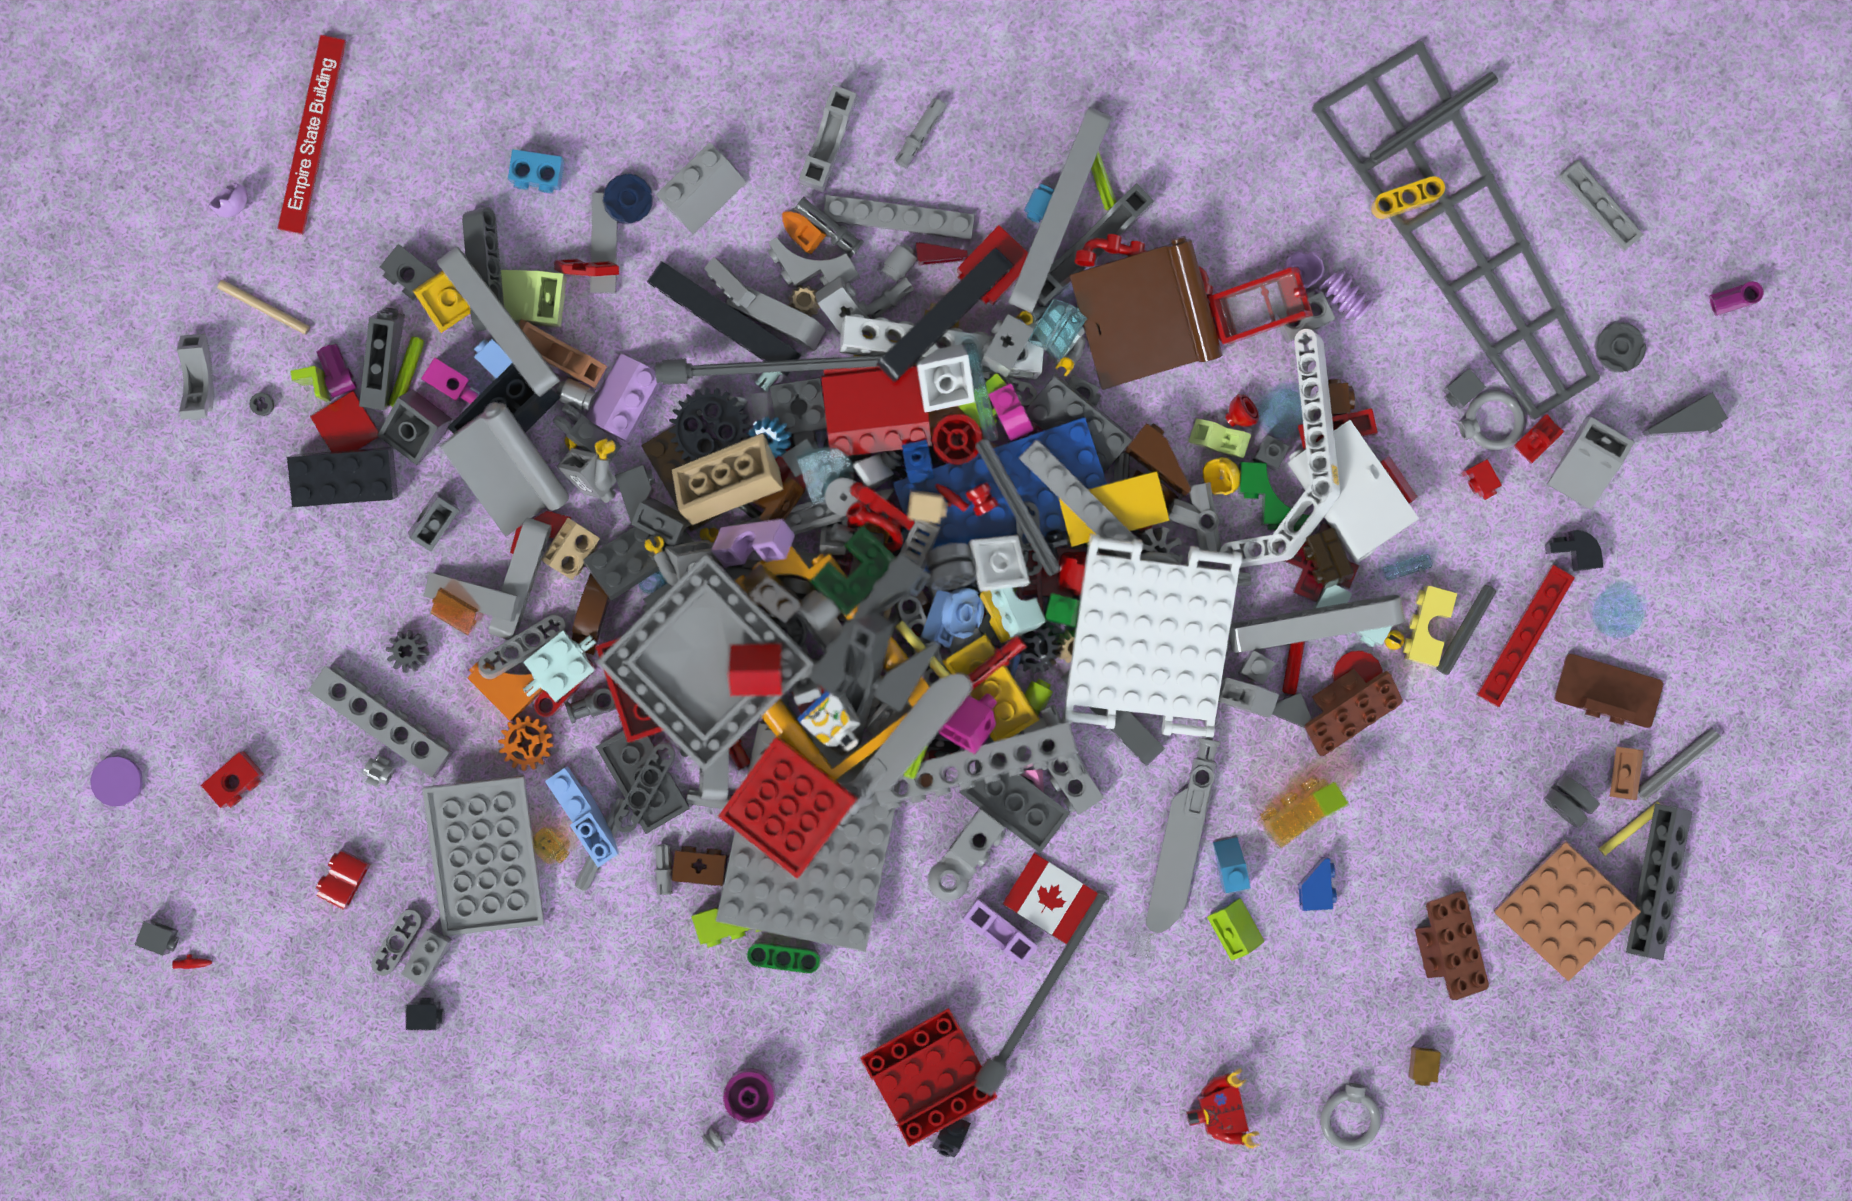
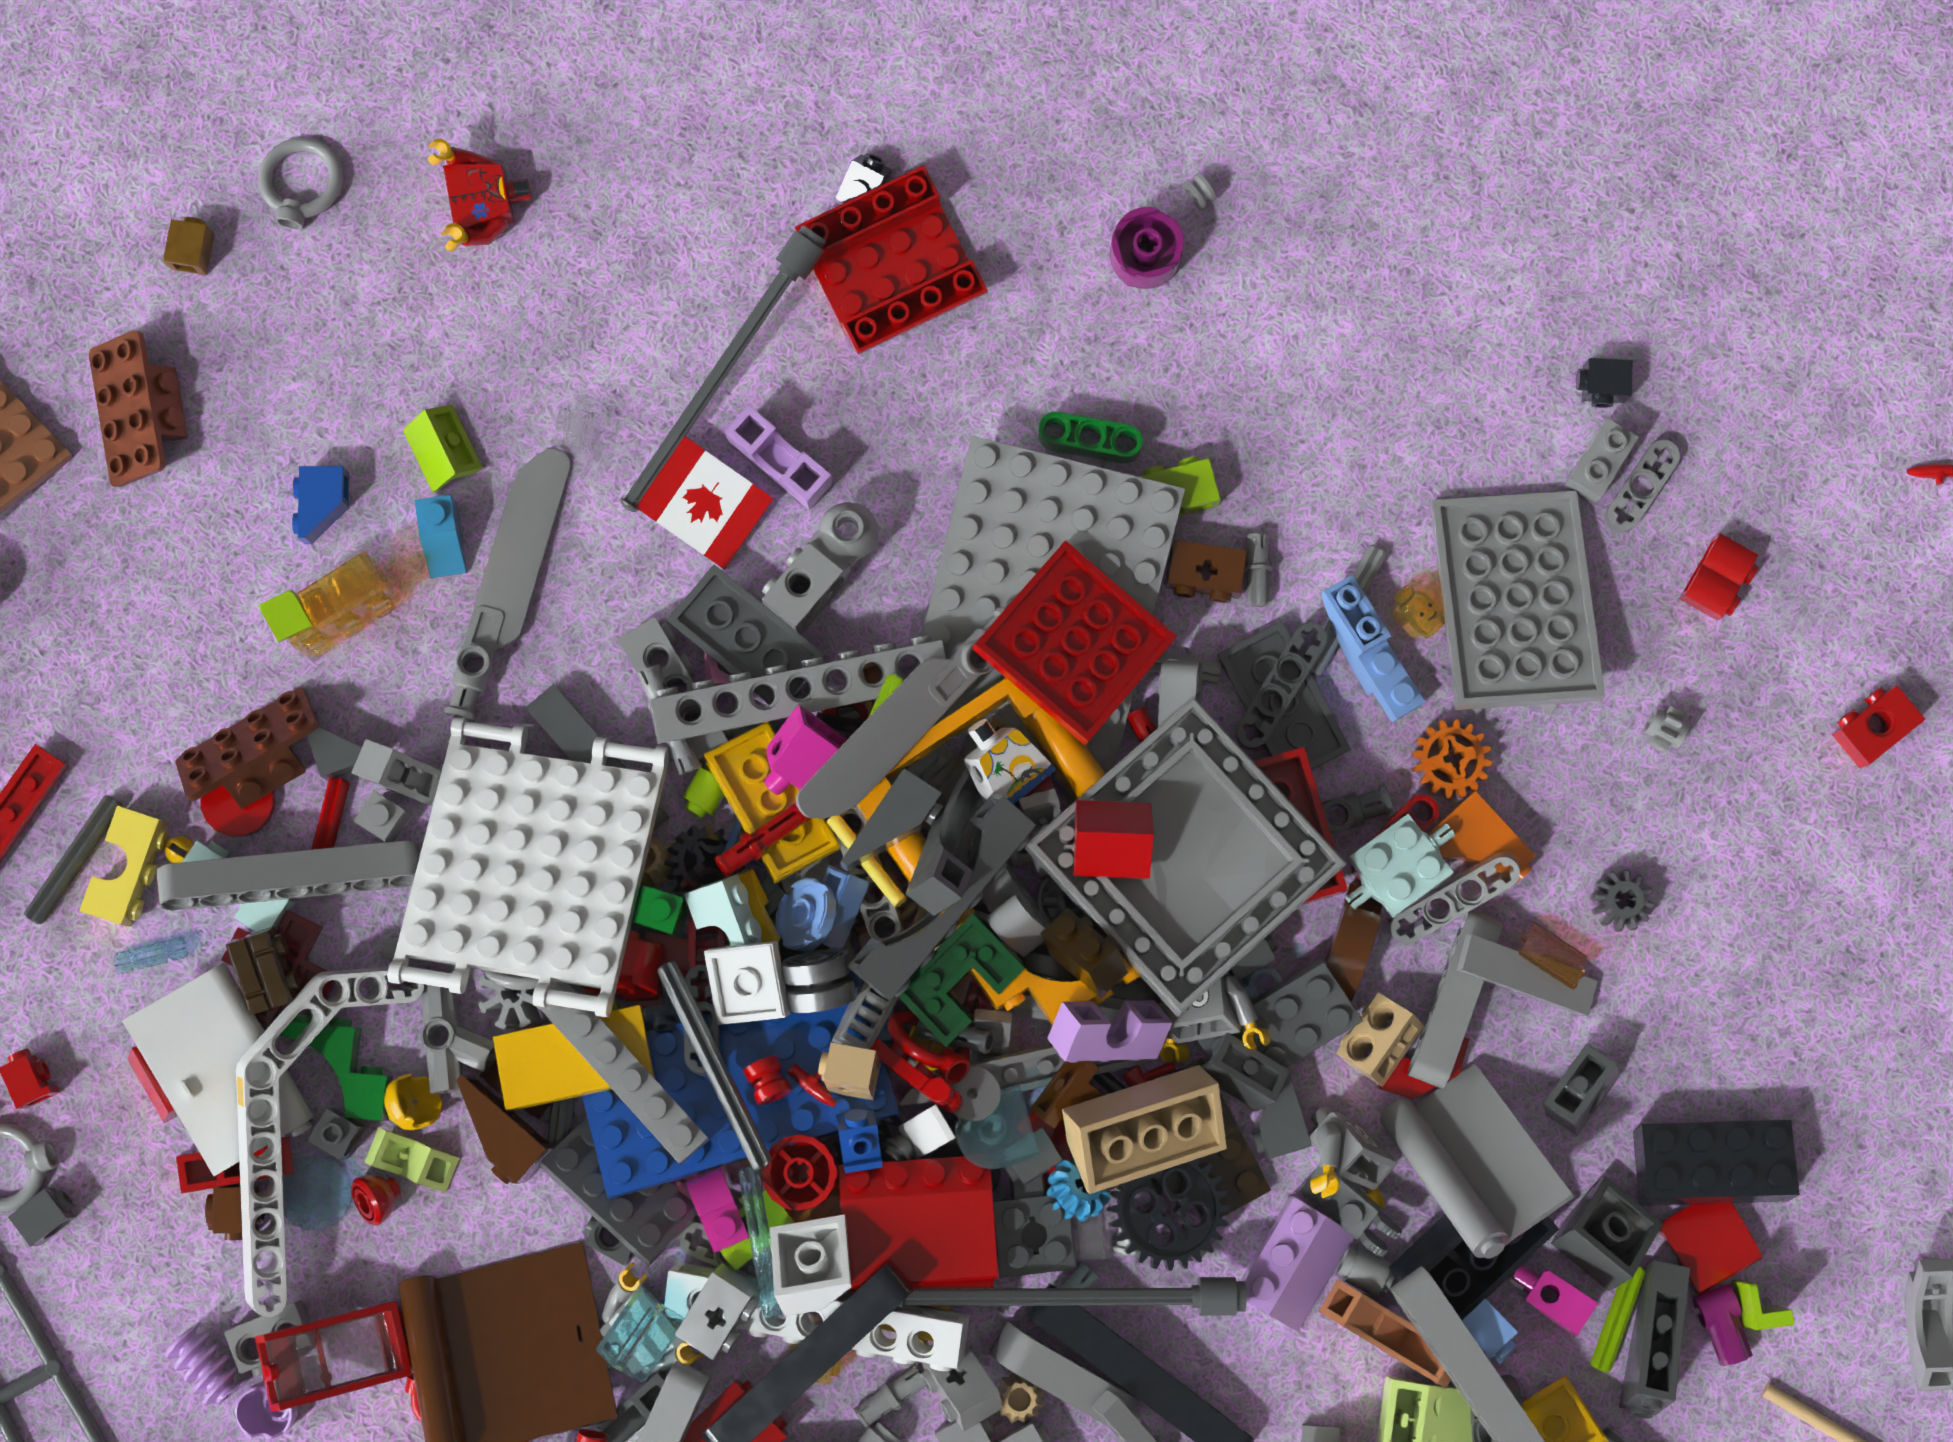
camera: 175 degrees left, 5 degrees down
(255, 408) = (1824, 1285): dark grey bush -> none
(325, 689) = (1743, 849): light grey brick -> none
(734, 515) = (1136, 1076): none -> red hand

